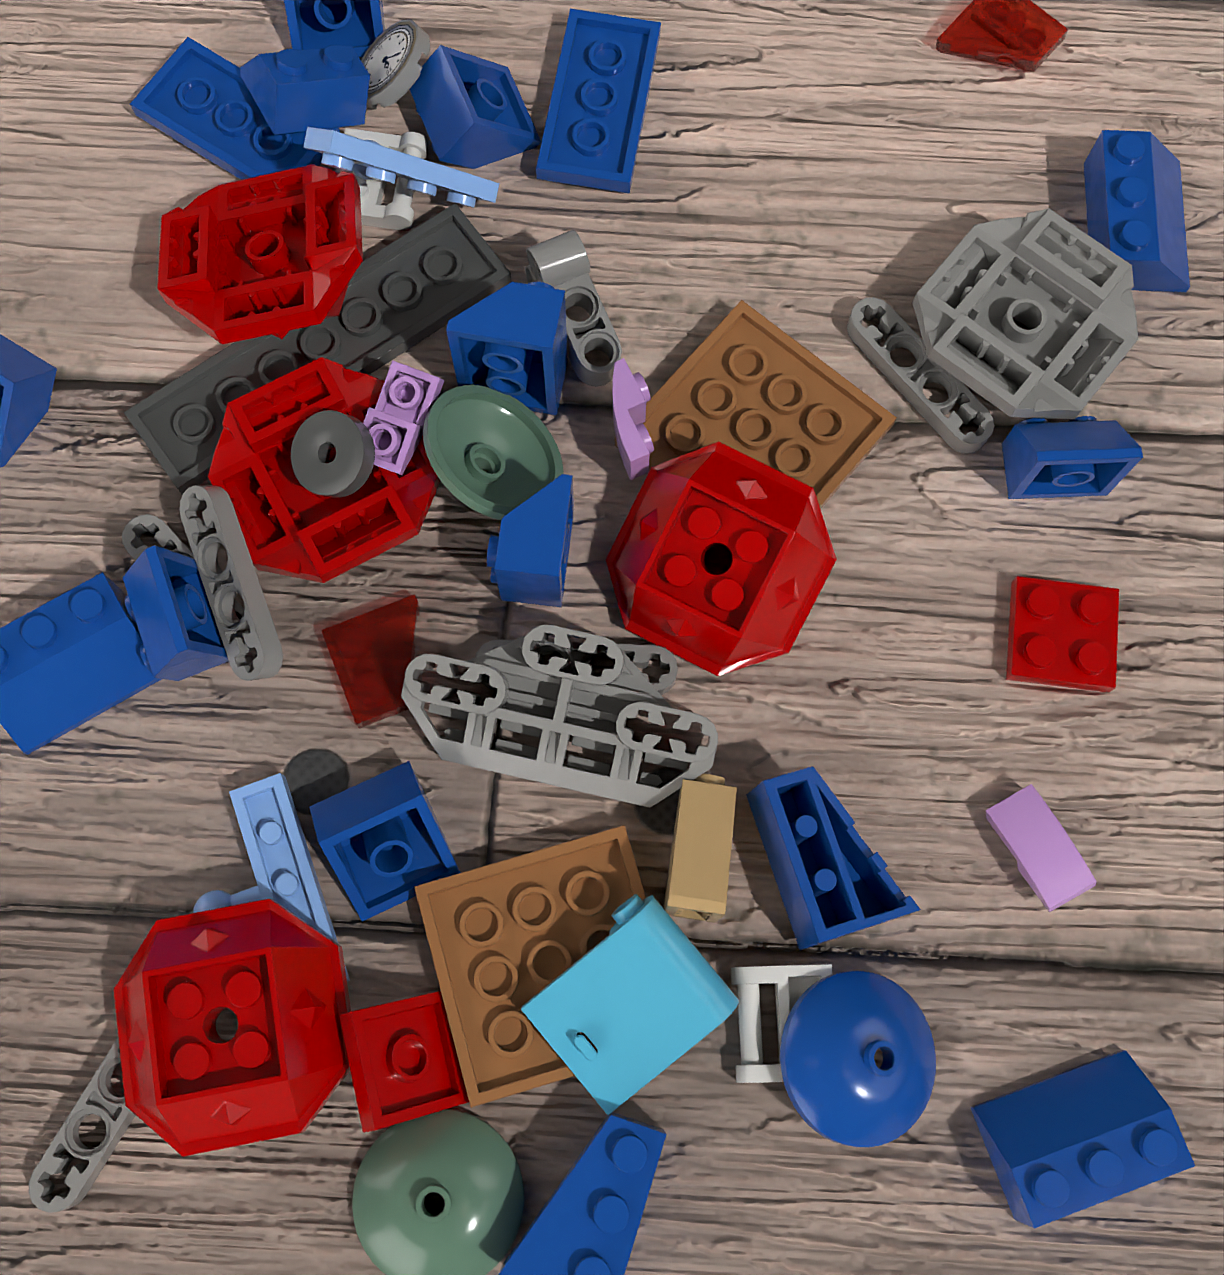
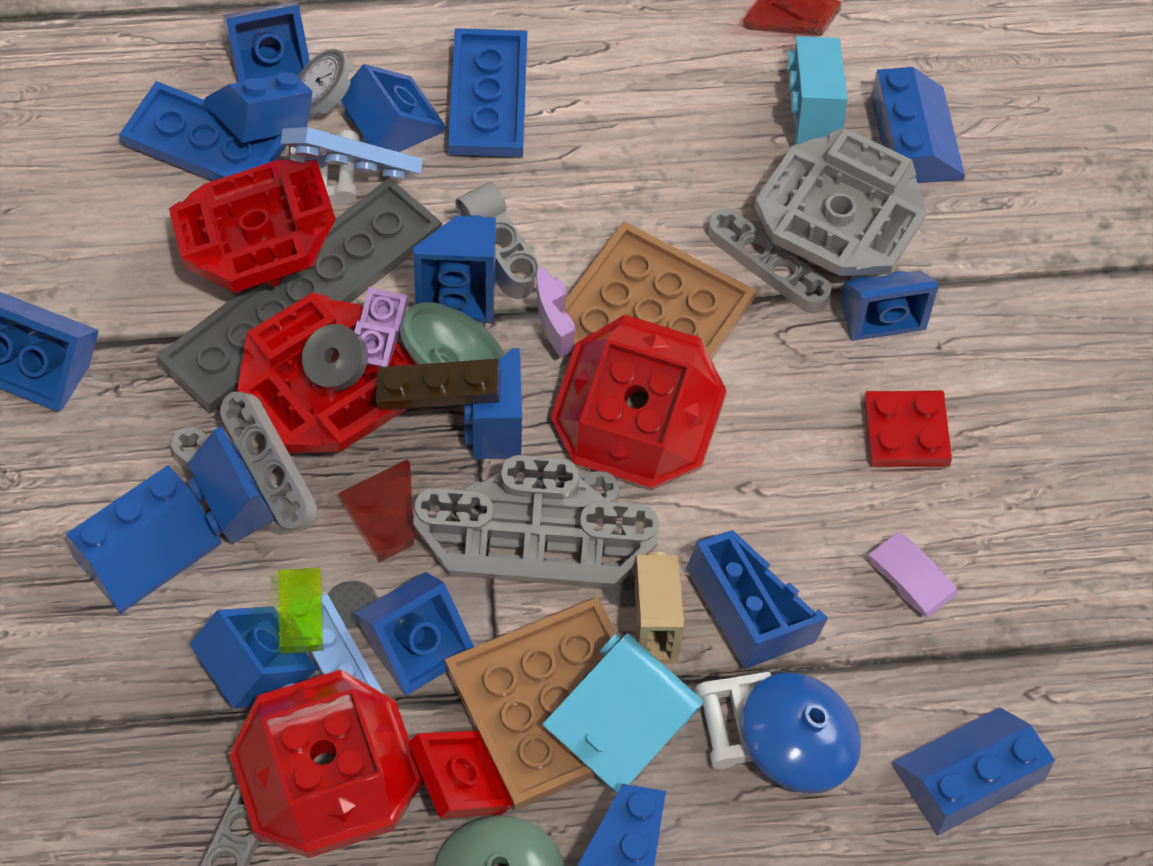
camera: 10 degrees left, 15 degrees down
(172, 843) = (245, 654): none -> blue slope
(237, 798) = (300, 610): none -> clear neon green plate
(457, 514) = (438, 384): none -> dark brown plate
(1019, 146) = (816, 87): none -> medium azure wedge

